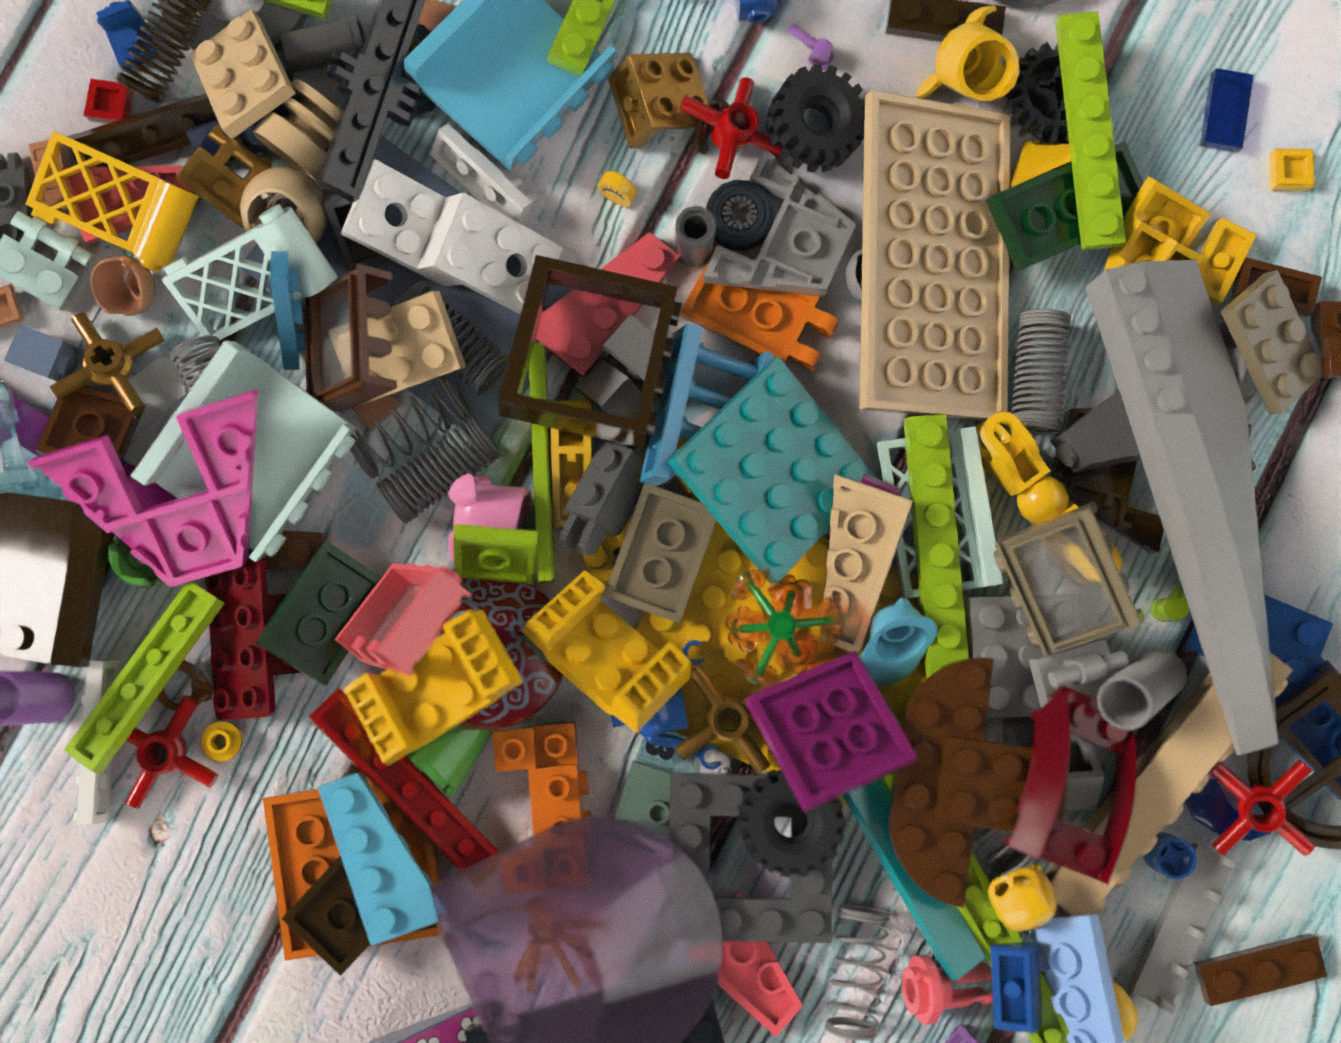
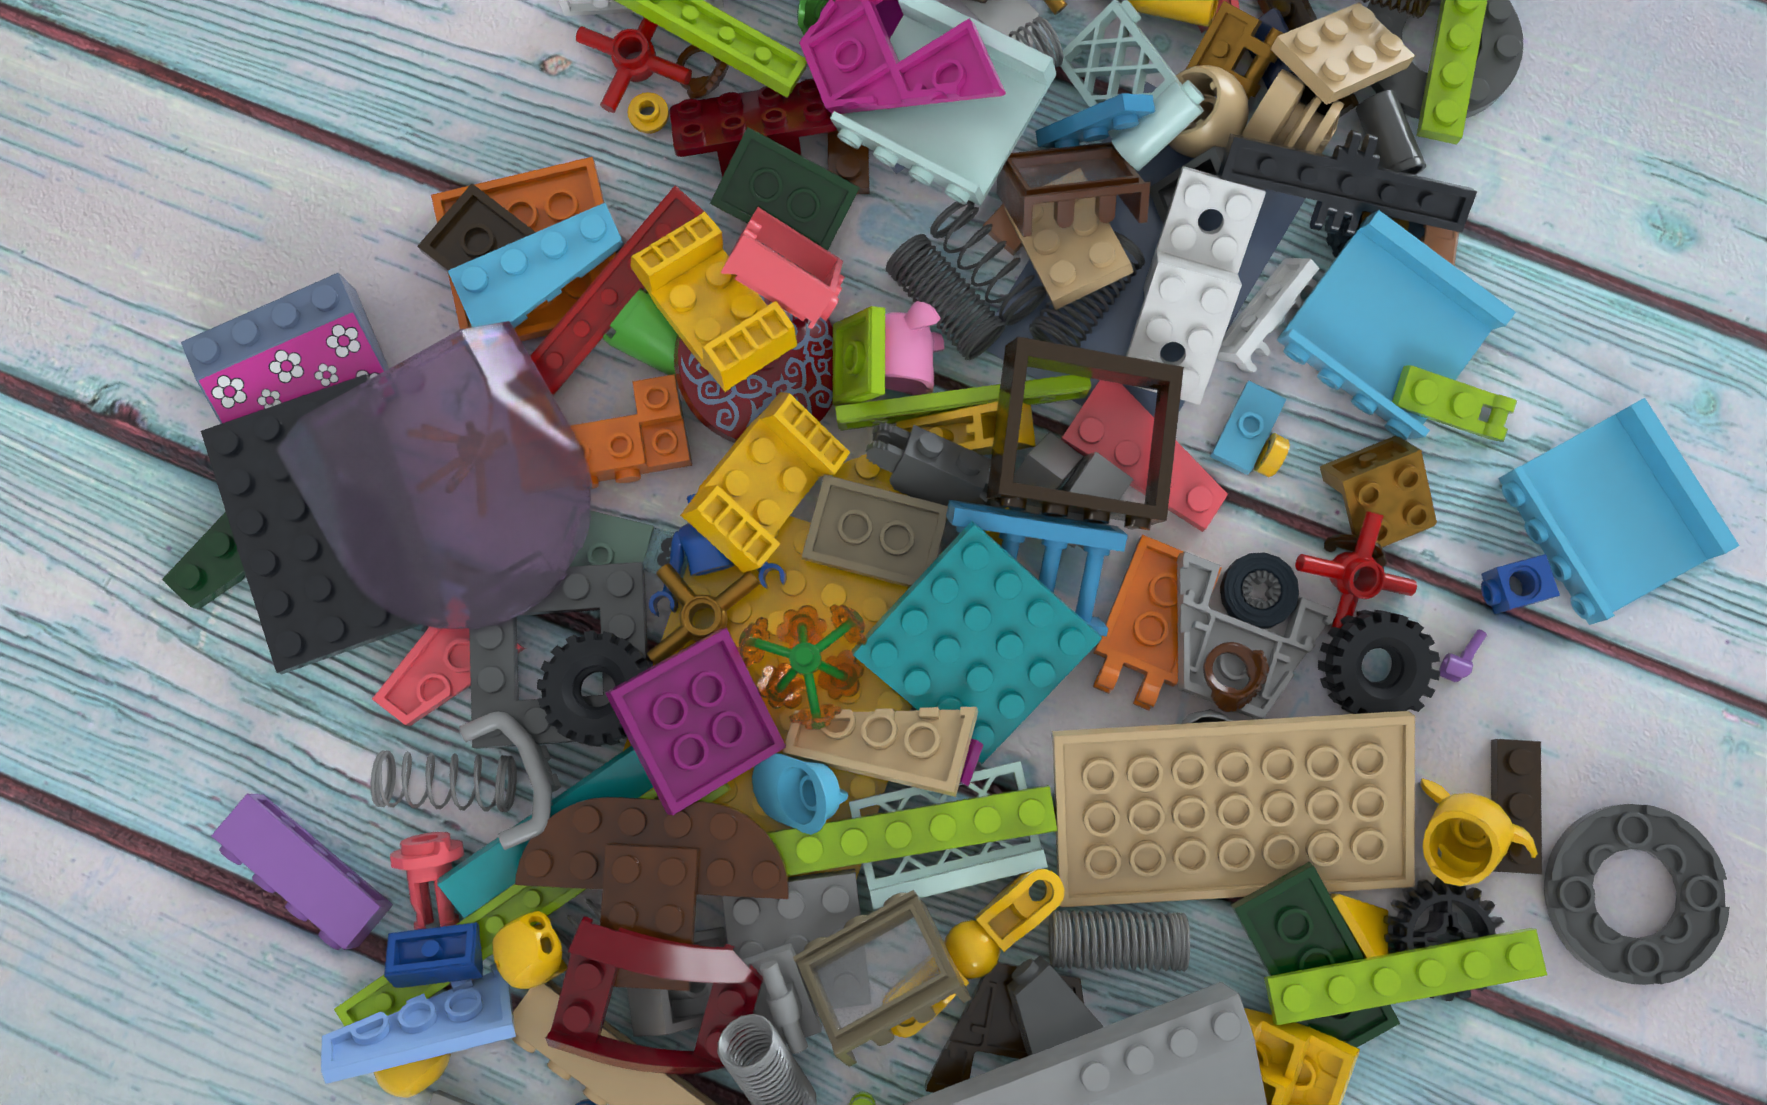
camera: 85 degrees right, 5 degrees down
(588, 207) = (1248, 427): none -> medium azure plate
(695, 222) = (1239, 530): dark grey pin -> none
(813, 224) = (1228, 698): none -> reddish brown piece
(855, 882) = (537, 767): none -> light grey piece

